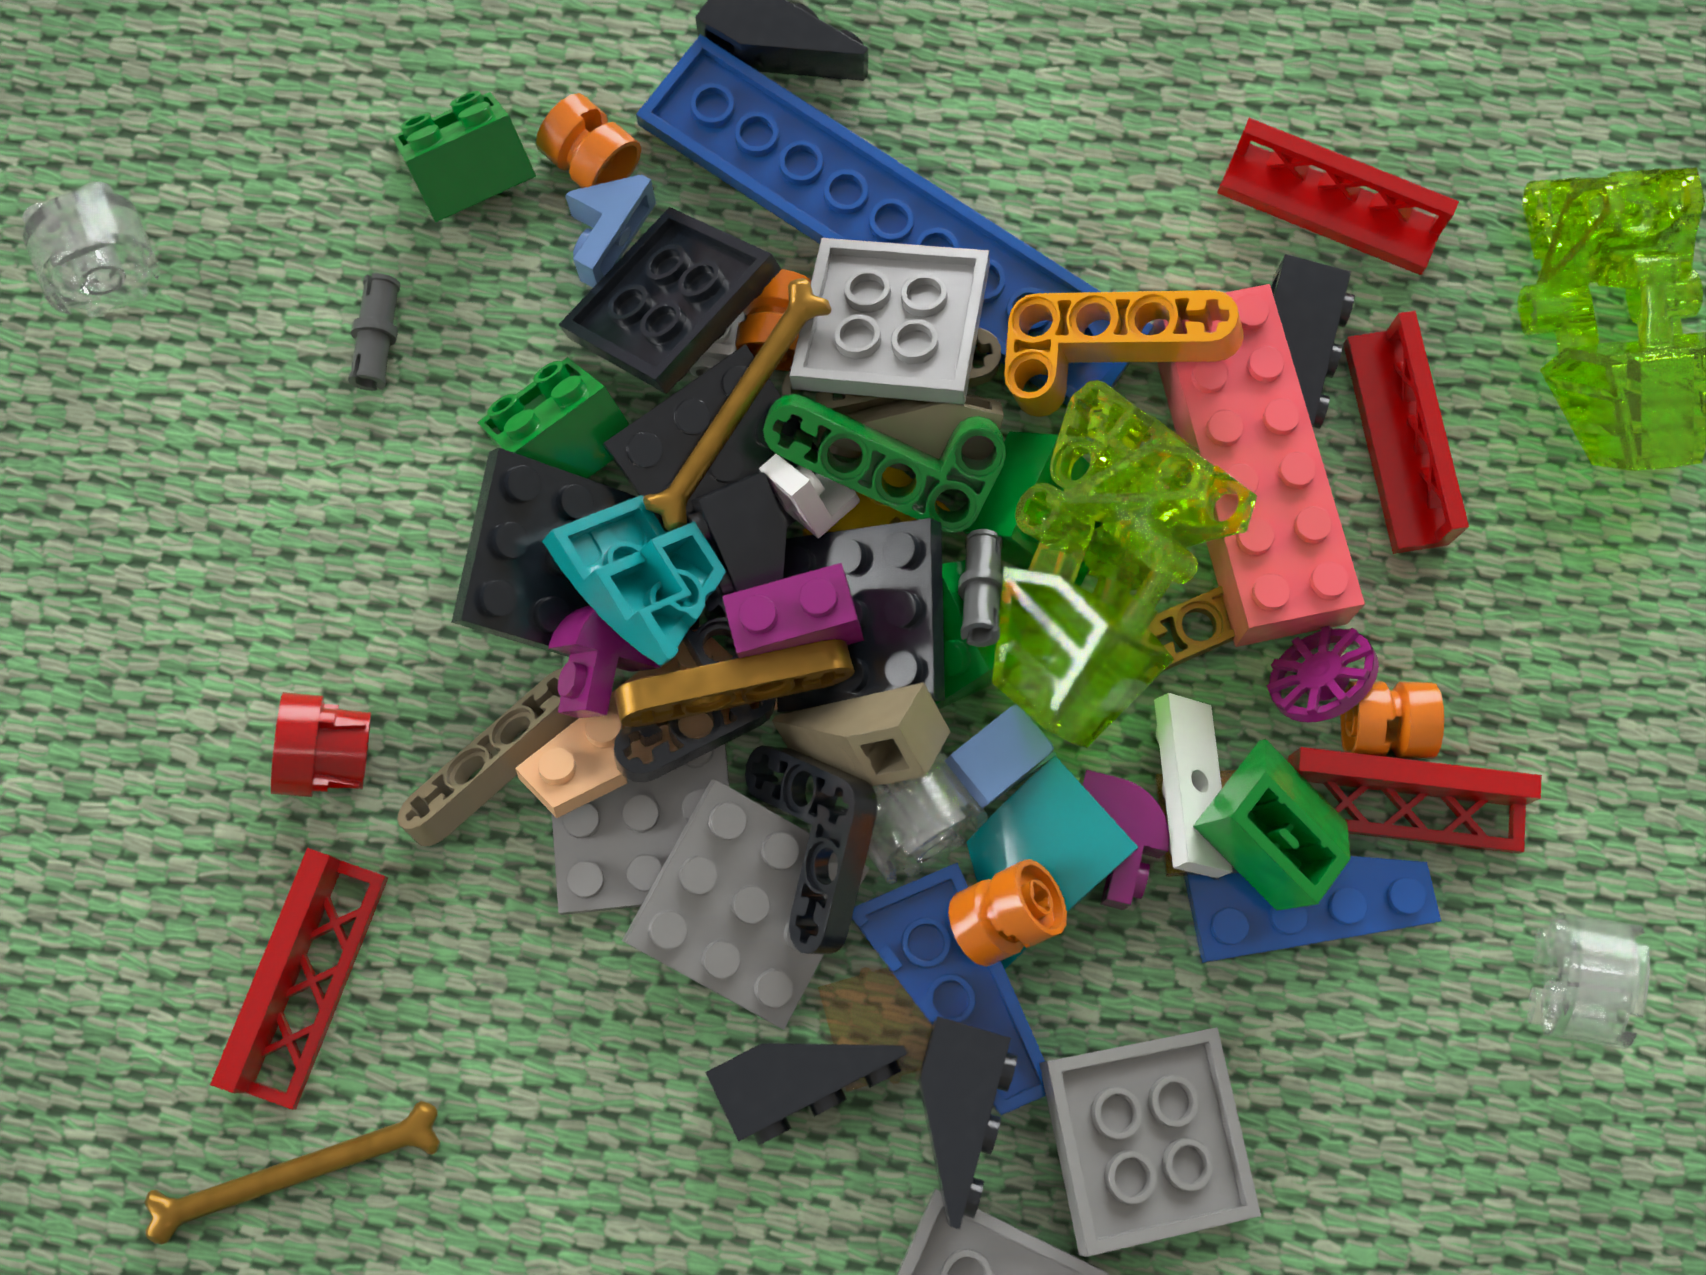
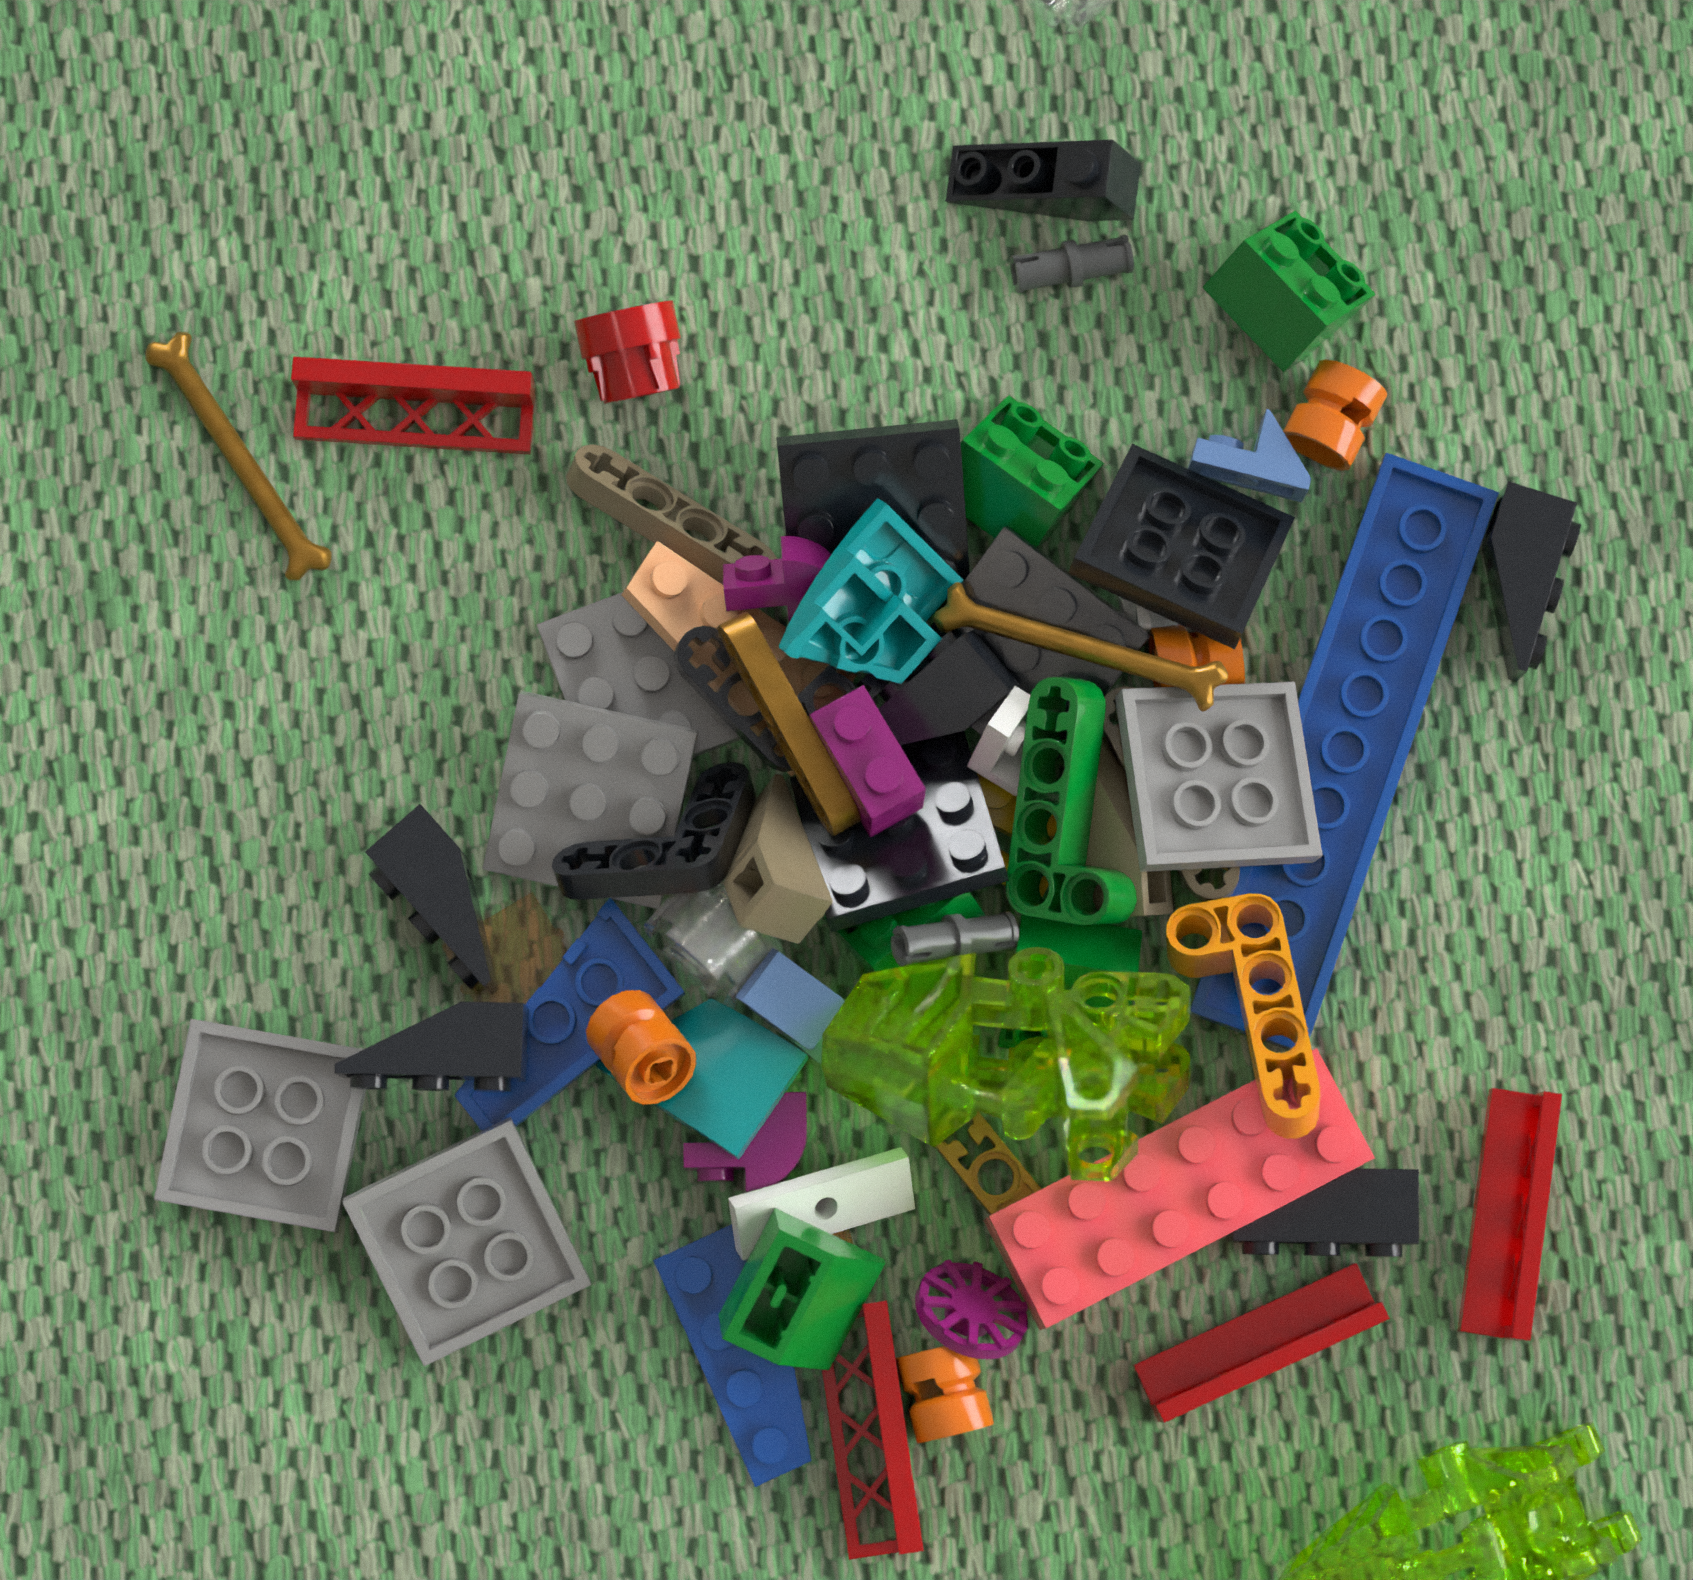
camera: 75 degrees right, 5 degrees up
(287, 329) = (1047, 178): none -> black slope

